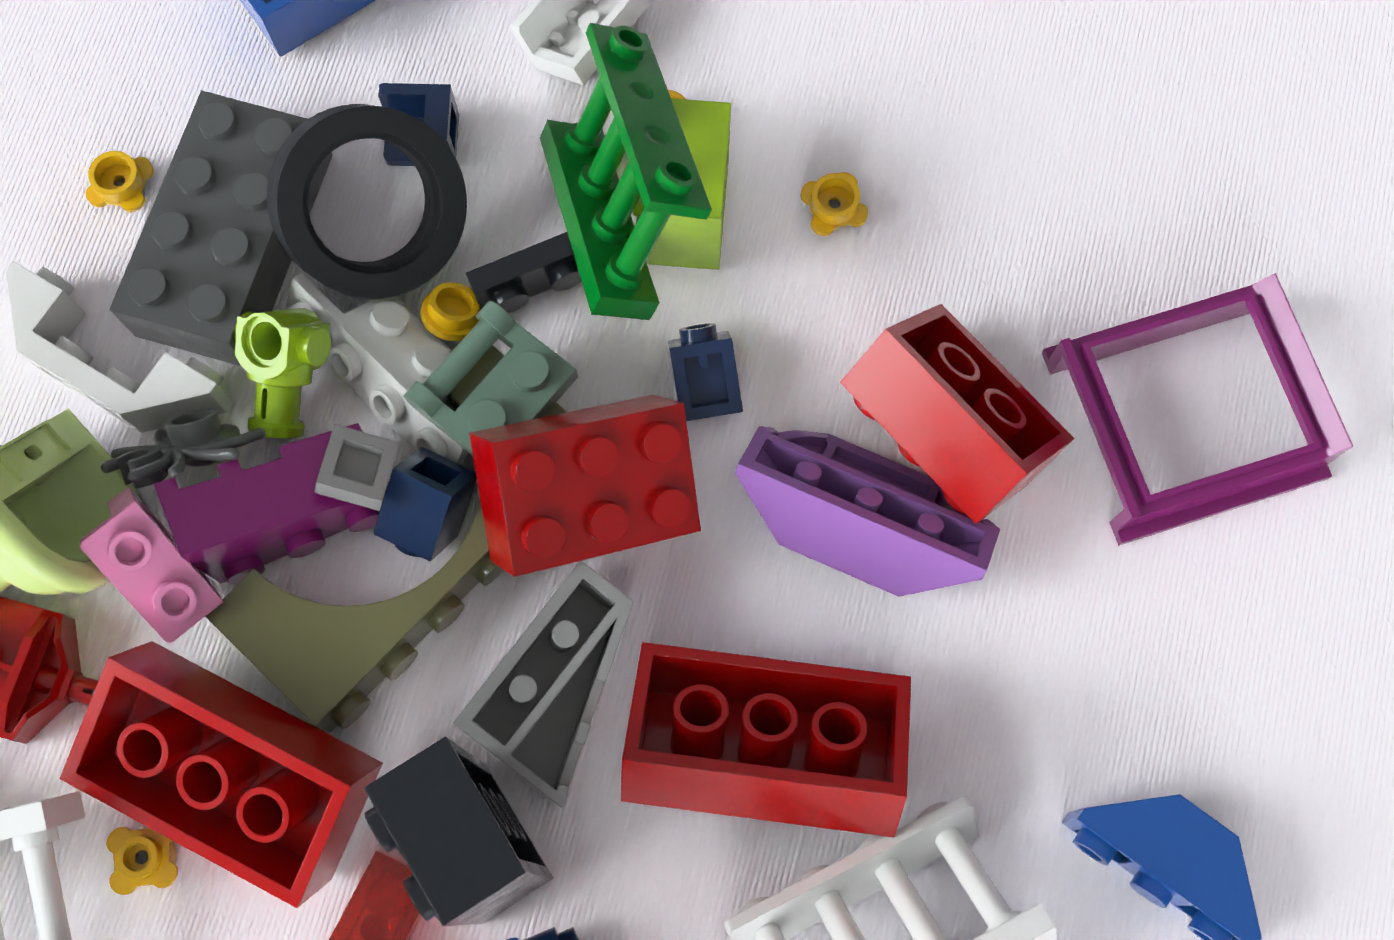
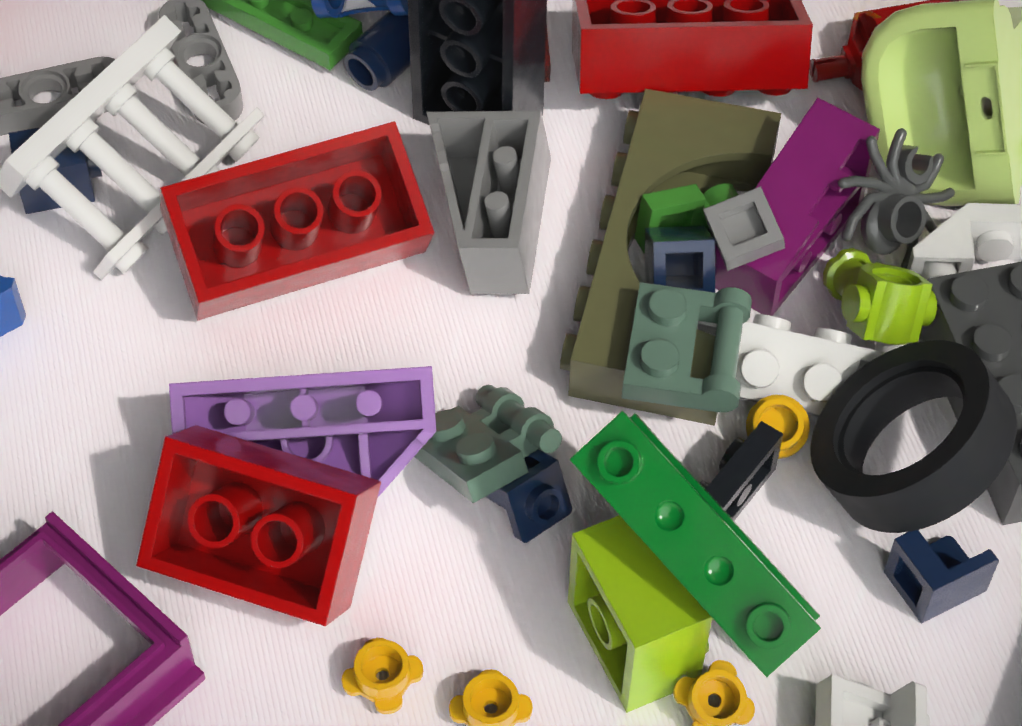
camera: 150 degrees right, 20 degrees down
(147, 568) = (857, 90): bright pink bracket -> none
(388, 572) = (678, 207): none -> bright green plate
(585, 483) = (554, 303): red brick -> none
(734, 402) = (489, 446): none -> sand green plate
(908, 255) = (379, 656): none -> yellow plate

